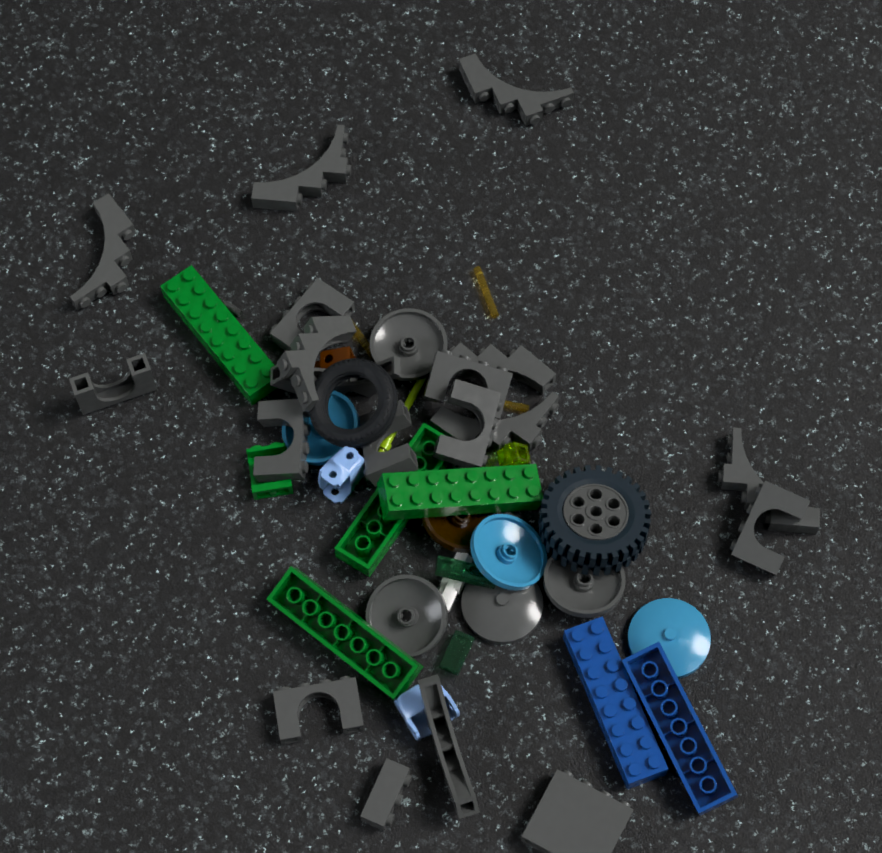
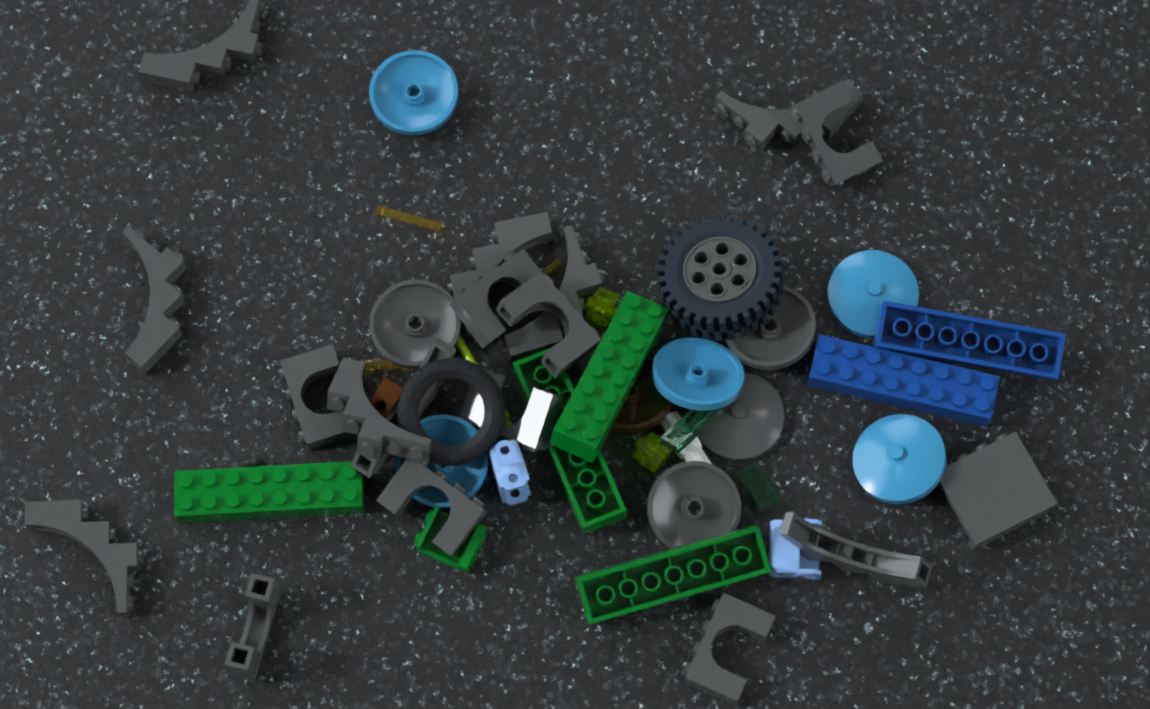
camera: 55 degrees left, 5 degrees up
(386, 795) = (853, 639): dark grey brick -> none
(426, 560) = (651, 452): none -> clear neon green brick
(550, 738) = (899, 459): none -> dark azure dish
(578, 232) = (413, 92): none -> dark azure dish

